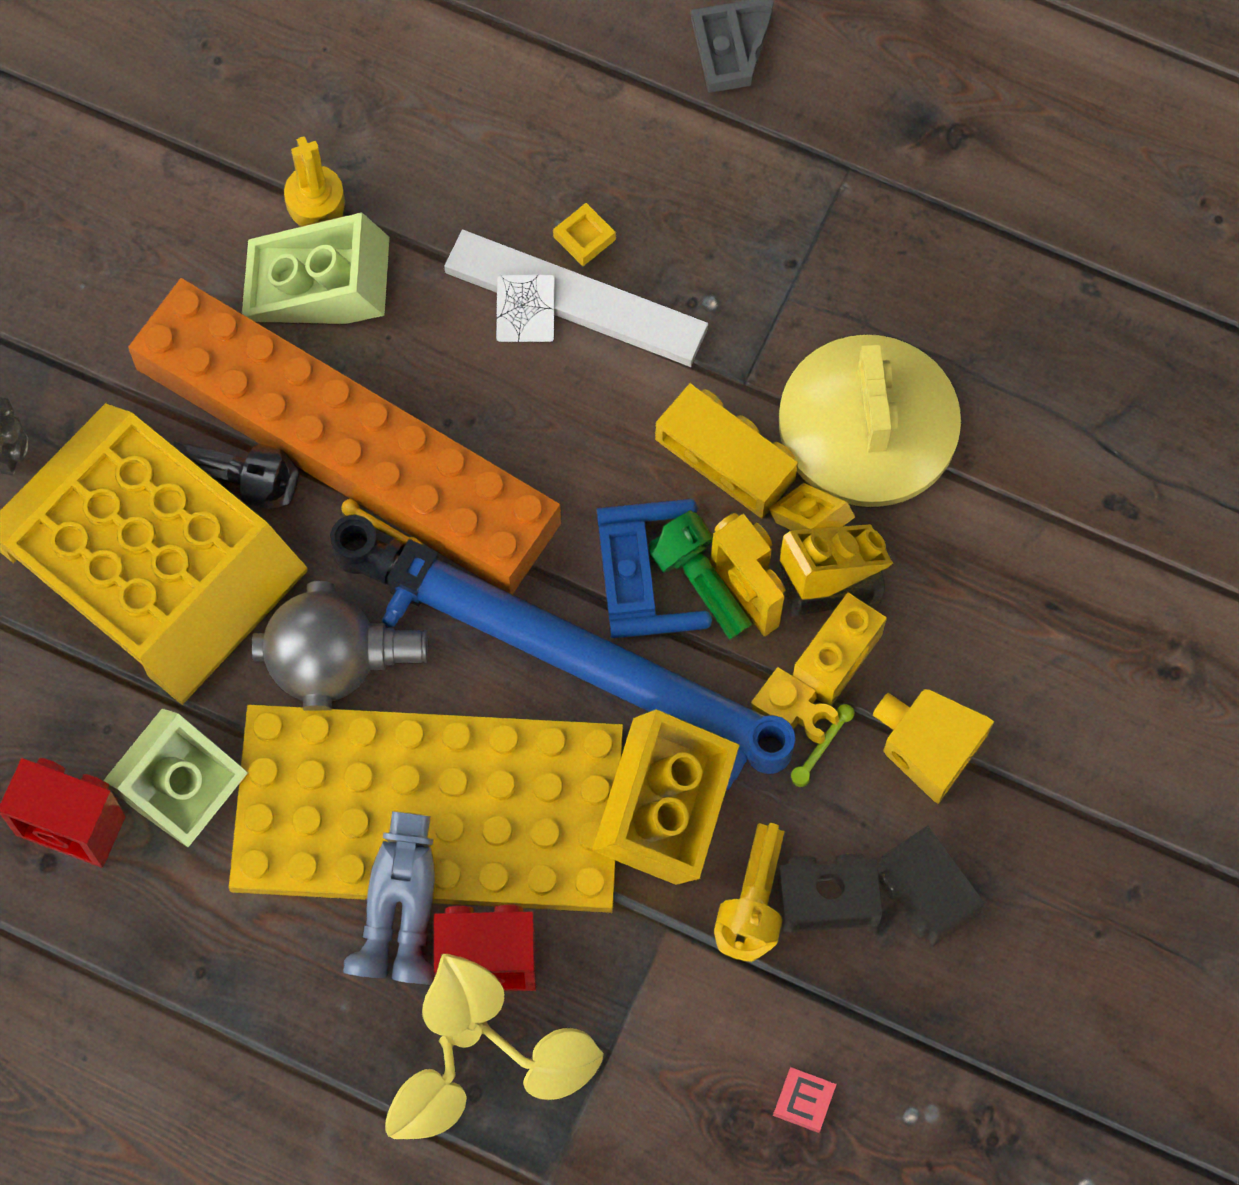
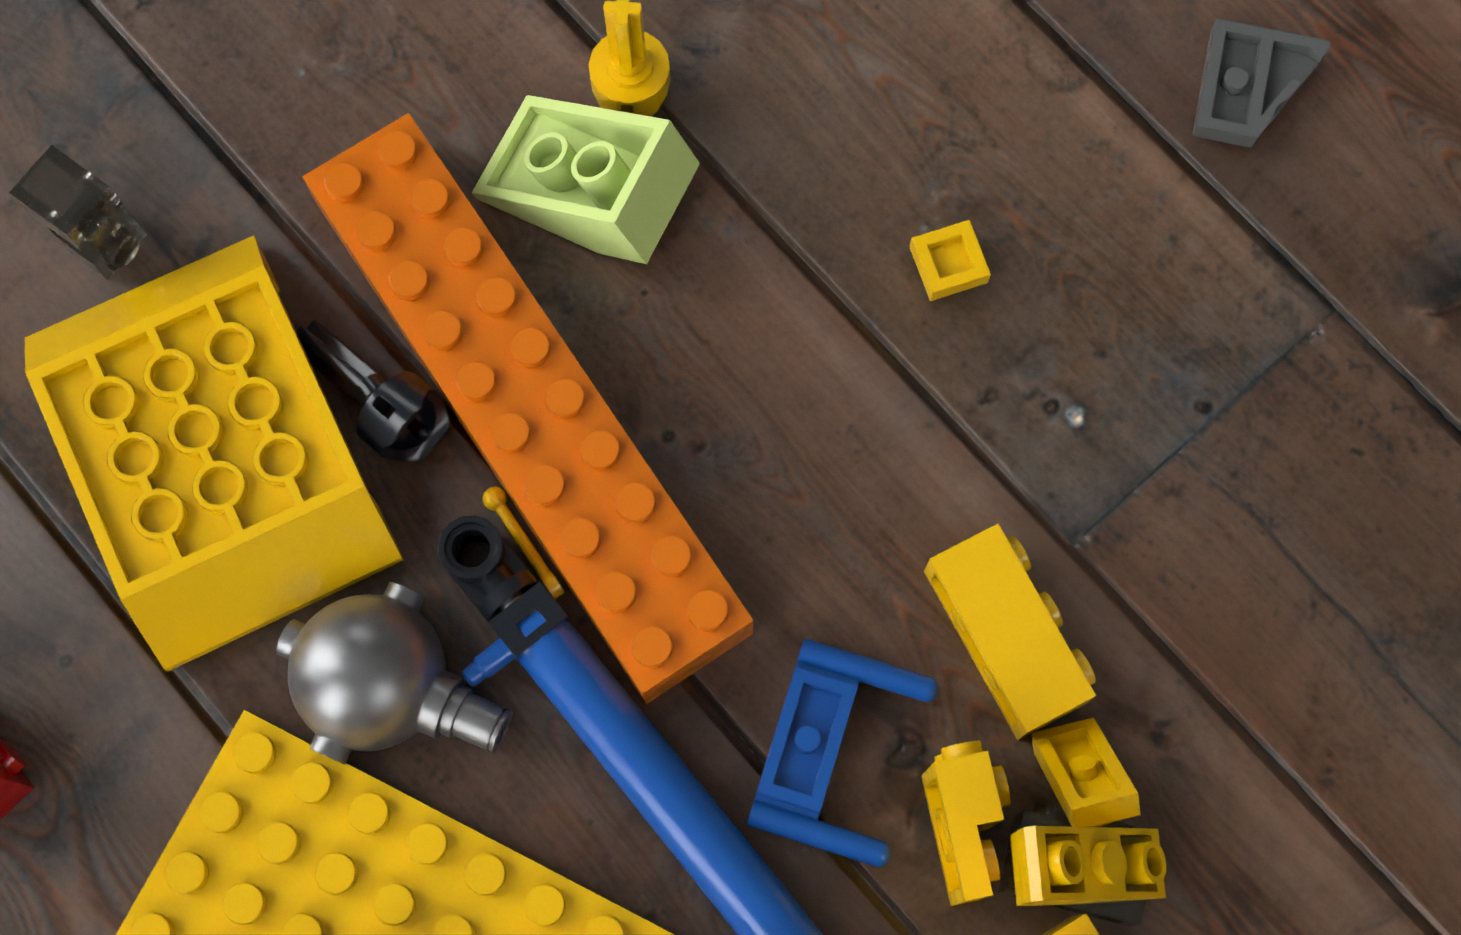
camera: 25 degrees right, 5 degrees up
(175, 776) = (104, 771): yellowish green slope -> none
(525, 308) = (831, 327): white sticker -> none
(583, 299) = (905, 341): white tile -> none
(683, 546) = (894, 741): green piece -> none
(870, 420) = (1219, 671): light yellow bracket -> none

